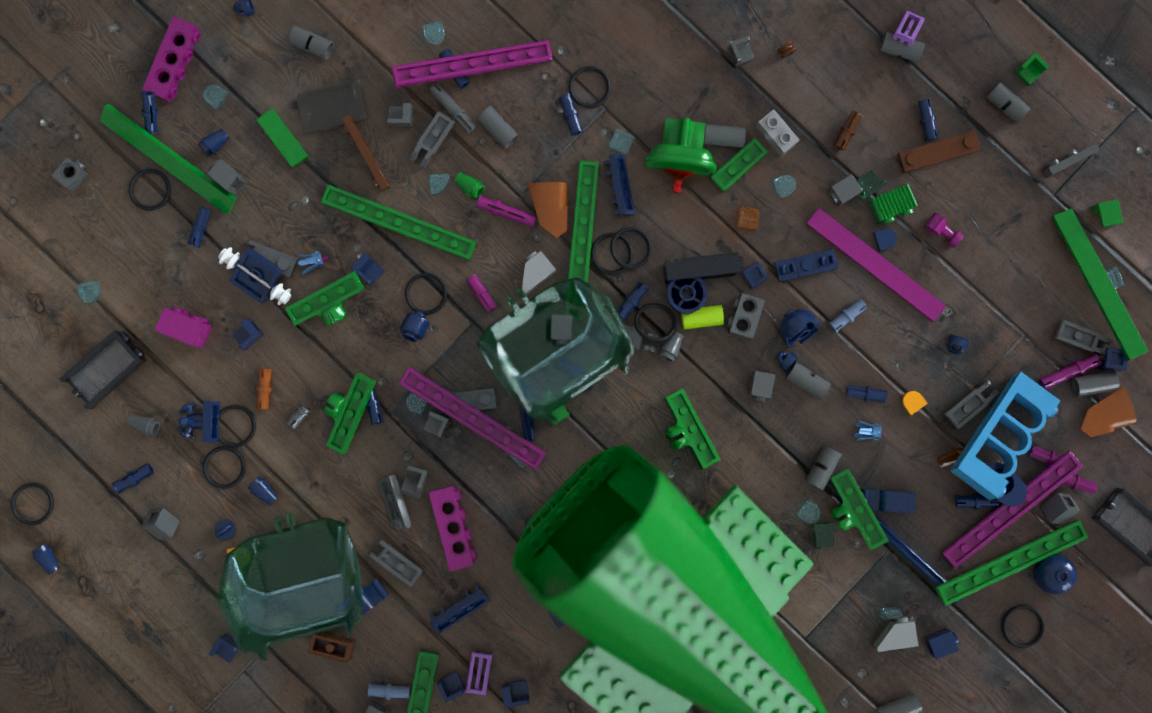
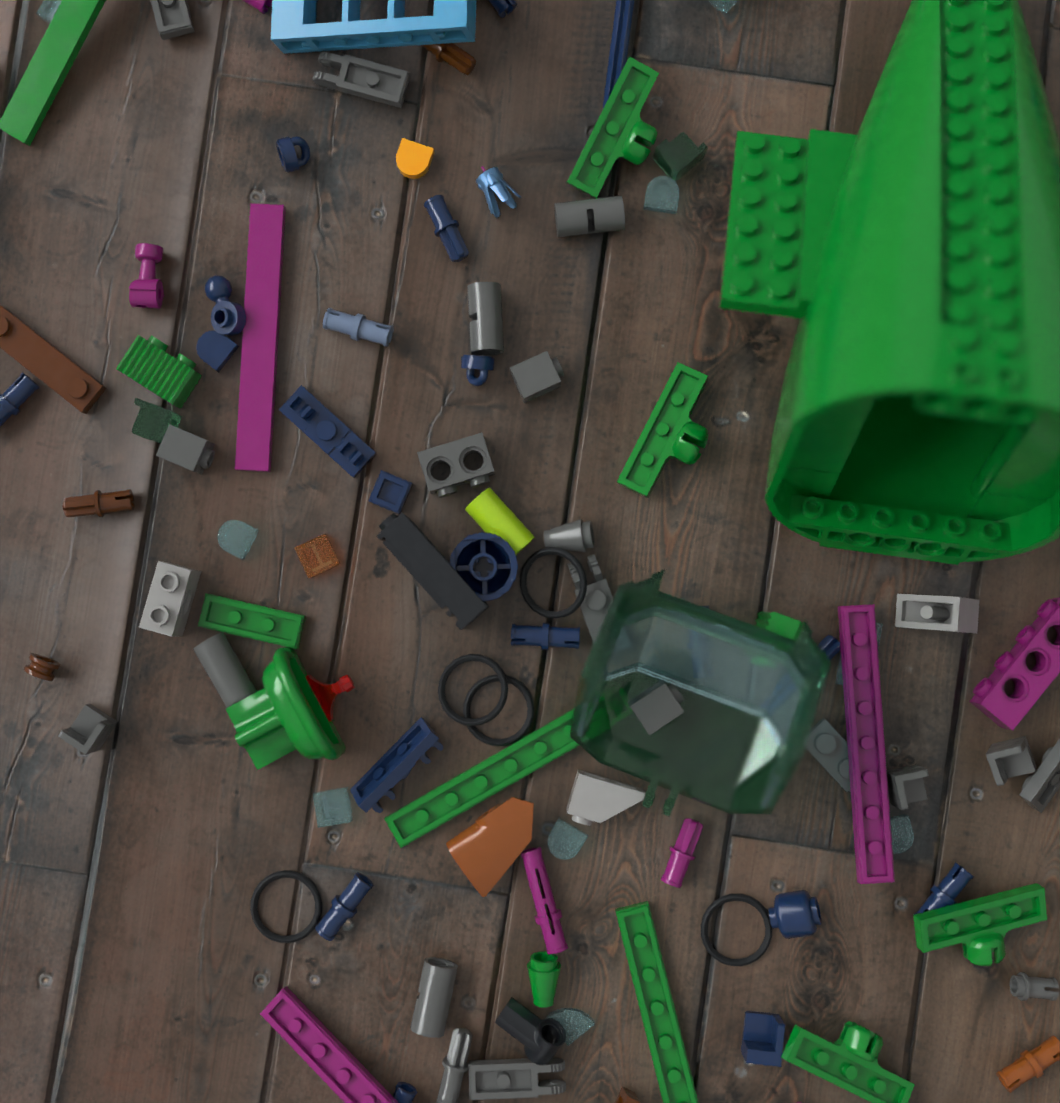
camera: 125 degrees left, 0 degrees up
(444, 163) = (539, 1036): none -> black piece
(508, 498) = (937, 613): none -> light grey slope
(527, 241) = (565, 840): none -> clear light blue tile
(798, 326) = (420, 383): dark blue cylinder -> none
(890, 500) = (568, 95): dark blue piece -> none
(897, 256) = (226, 316): none -> dark blue plate

